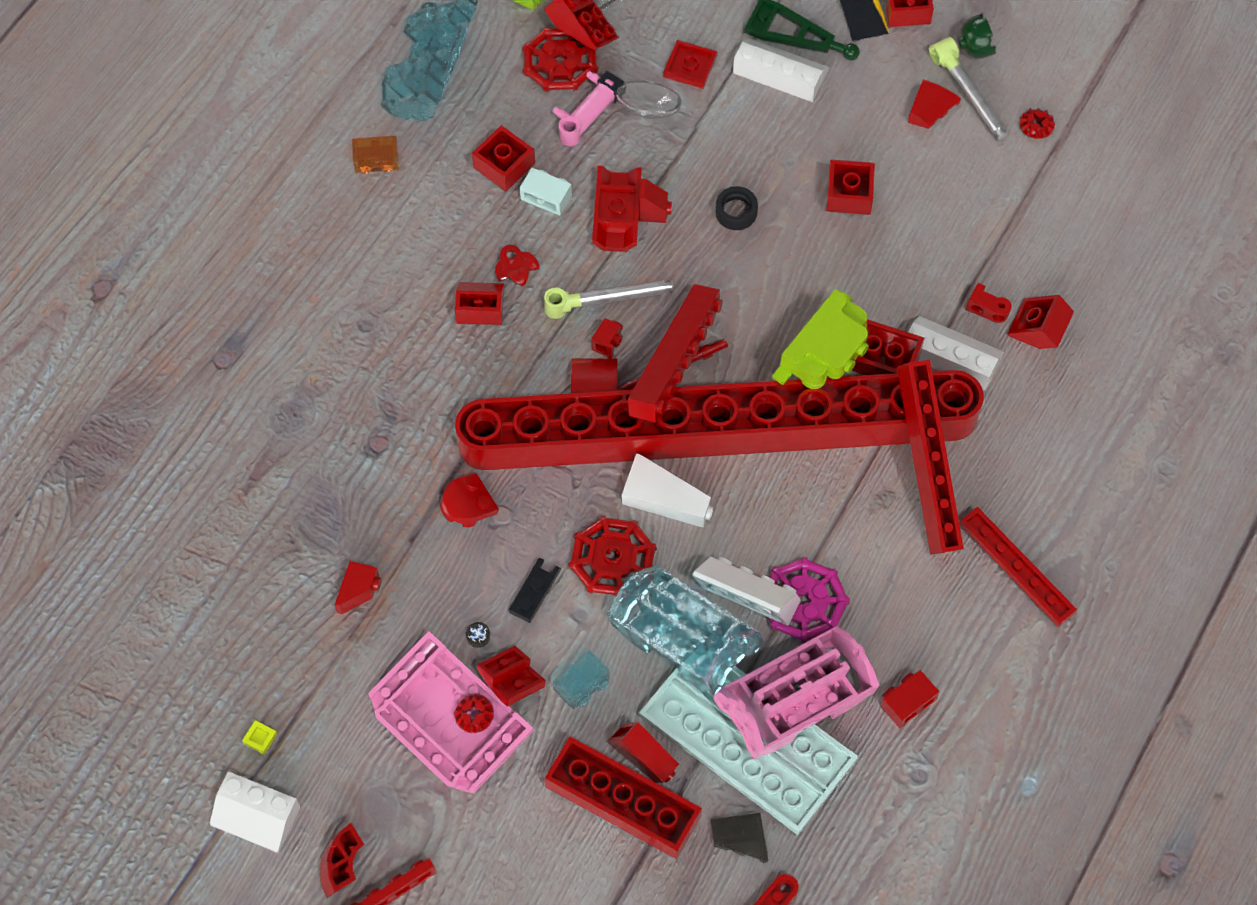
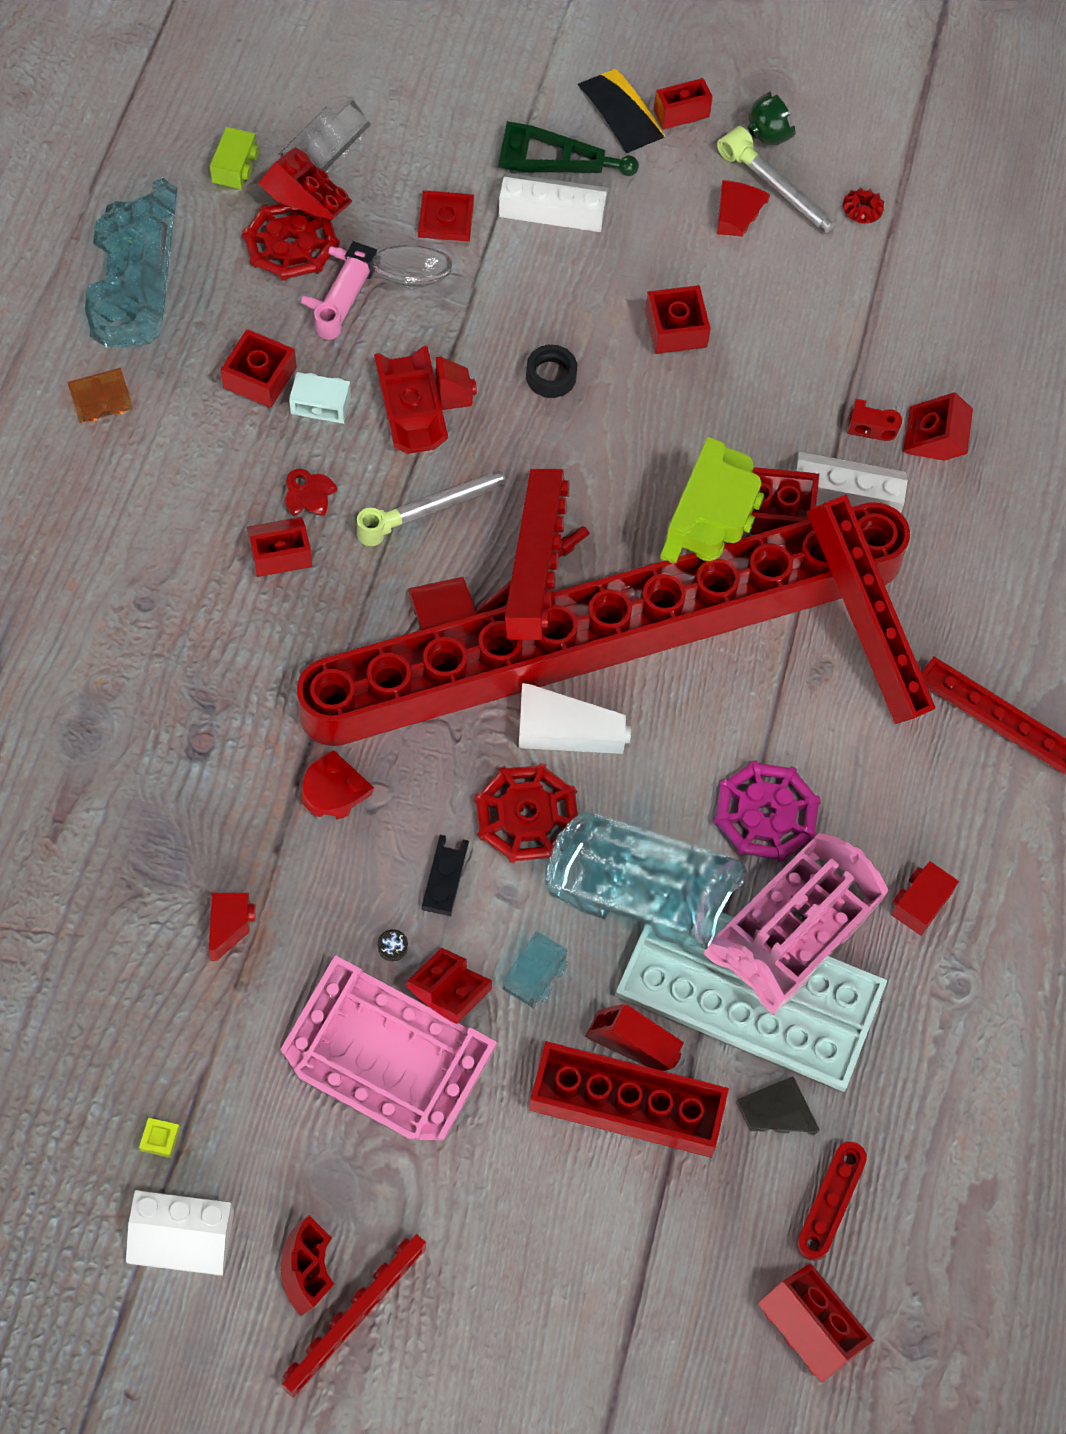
camera: 20 degrees left, 0 degrees up
(481, 721) = (430, 1050): red gear -> none
(607, 337) = (445, 555): red brick -> none
(747, 589) = (703, 814): white slope -> none

